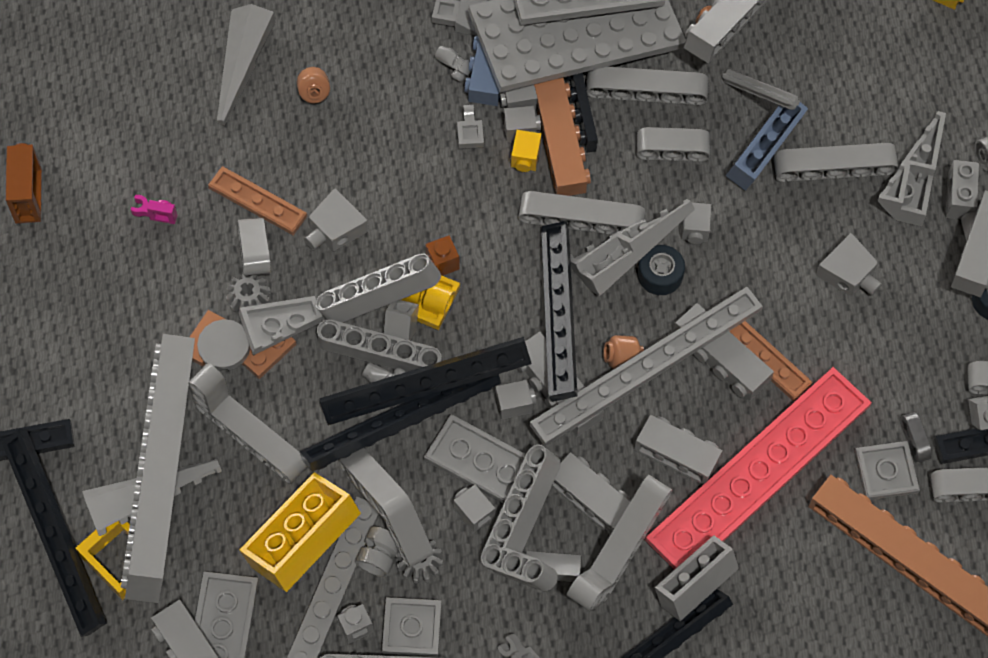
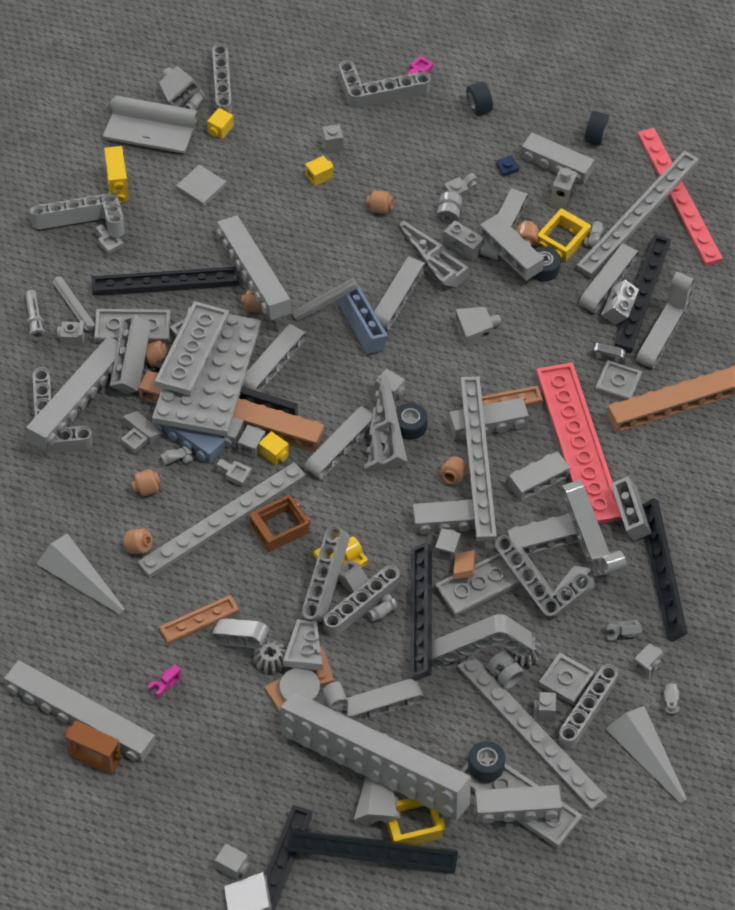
camera: 60 degrees left, 10 degrees down
(68, 150) = (72, 706): none -> light grey brick
(237, 584) = (486, 761): none -> black wheel
(300, 531) = (466, 703): yellow brick -> none
(335, 223) = (250, 580): light grey torso -> none
(395, 52) = (146, 482): none -> nougat head
(403, 152) = (221, 520): none -> light grey plate
(420, 183) = (258, 517): none -> dark orange window
(425, 381) = (406, 584): black plate -> none
(443, 255) = (317, 530): dark orange brick -> none
(473, 507) = (508, 603): light grey brick -> none
(495, 431) = (464, 564): none -> nougat tile
(559, 312) = (406, 485): plate -> none
(673, 143) = (325, 367): light grey beam -> none
(951, 74) = (380, 202): none -> nougat head

